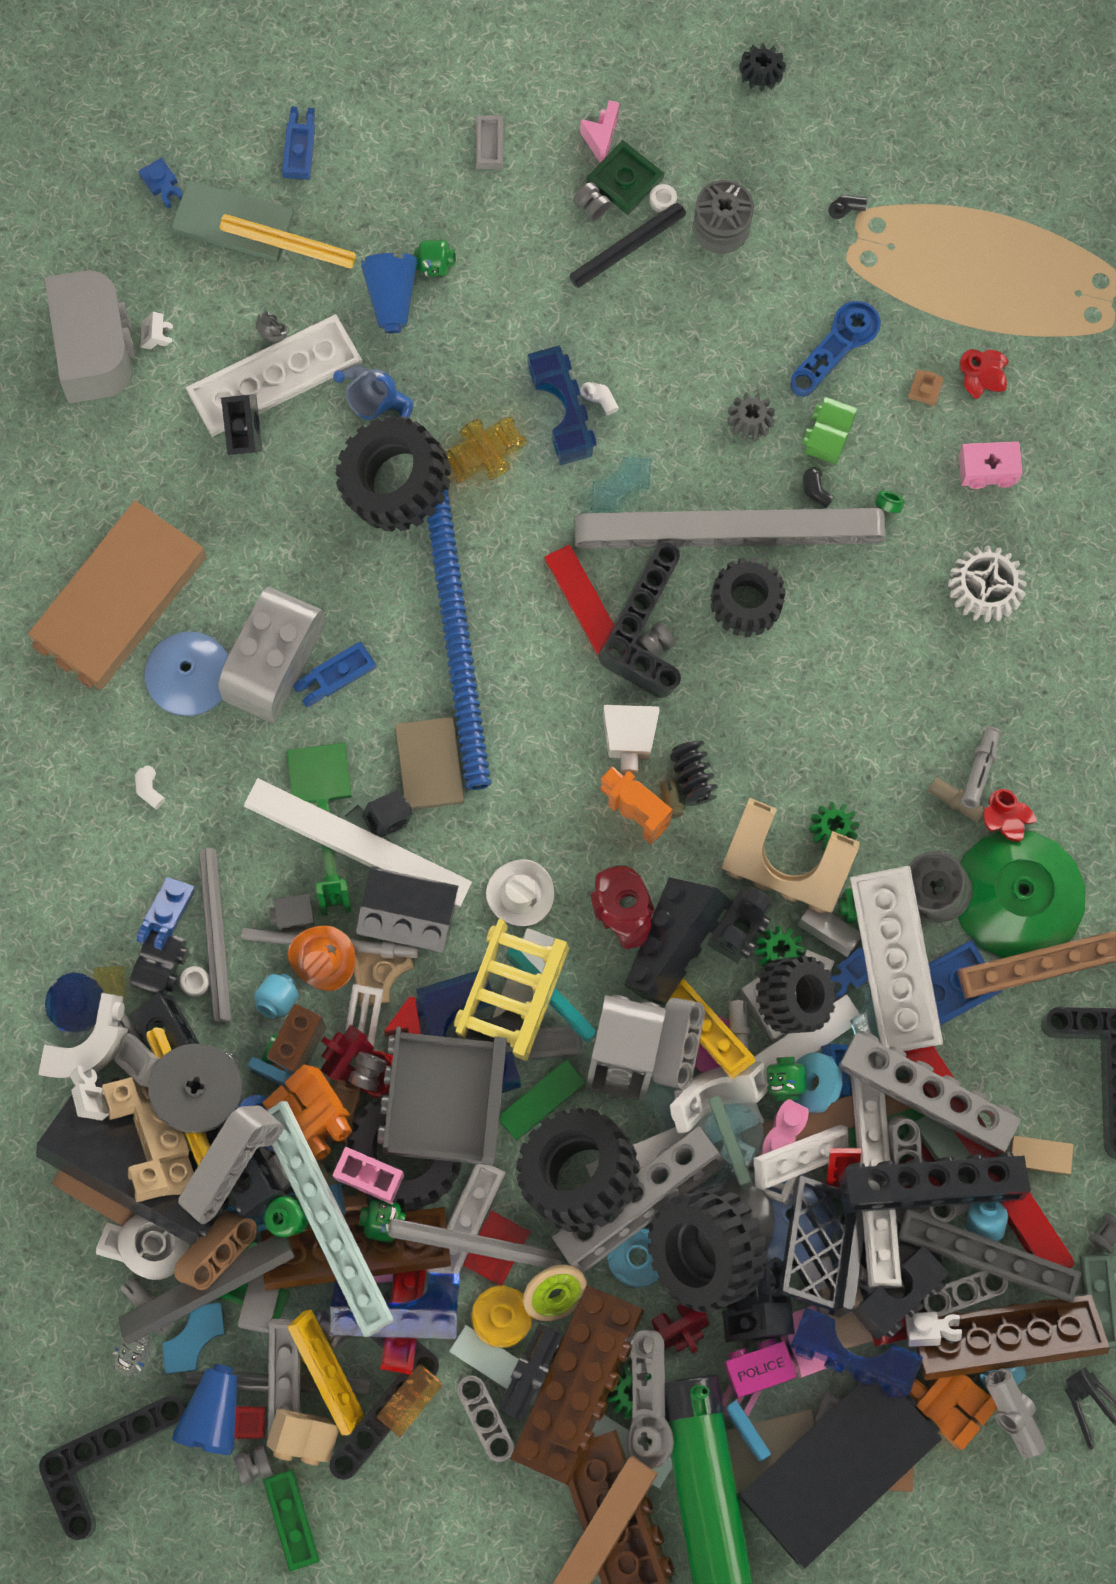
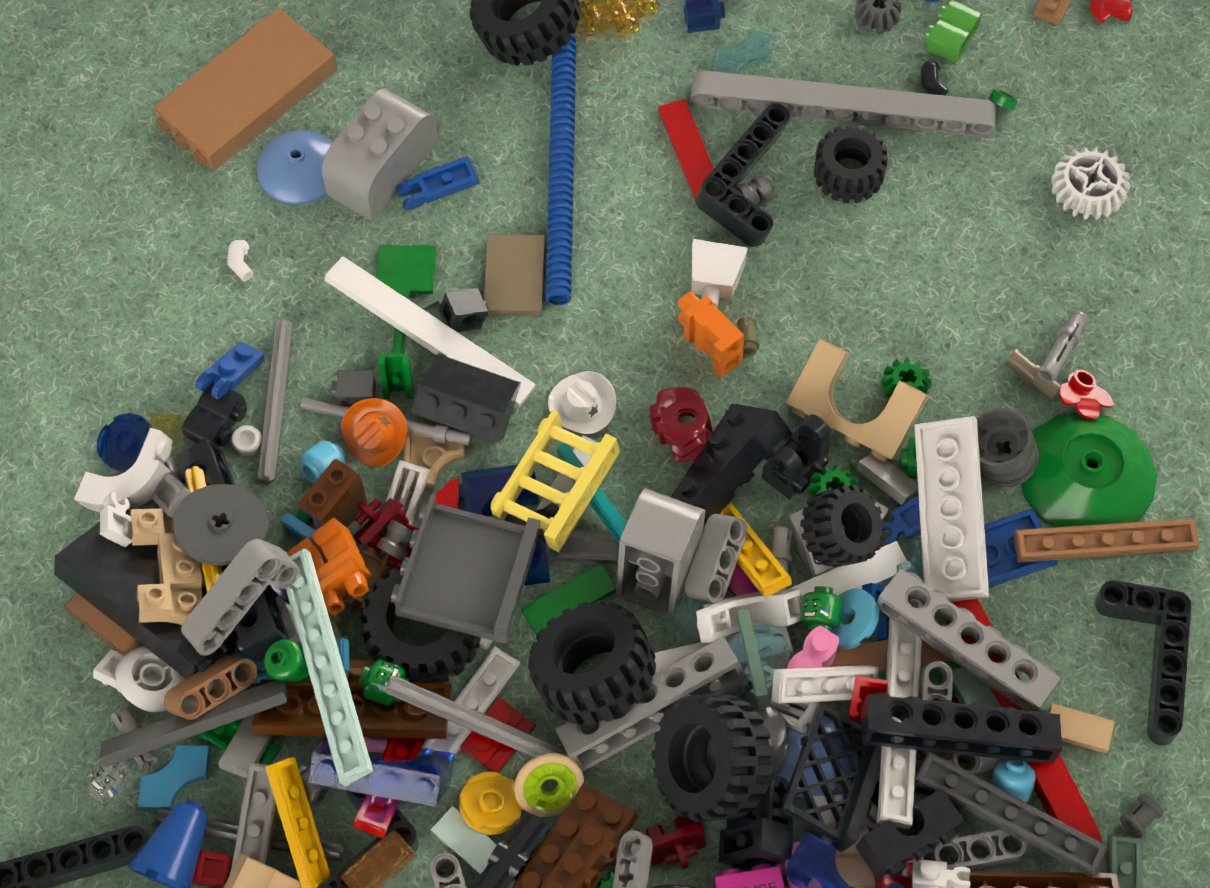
camera: 15 degrees right, 10 degrees down
(368, 1175) = (376, 629): bright pink brick -> none
(624, 1270) = (626, 779): medium azure tile -> none
(692, 773) = (772, 315): black piece -> none
(1000, 455) = (1107, 78): bright pink brick -> none

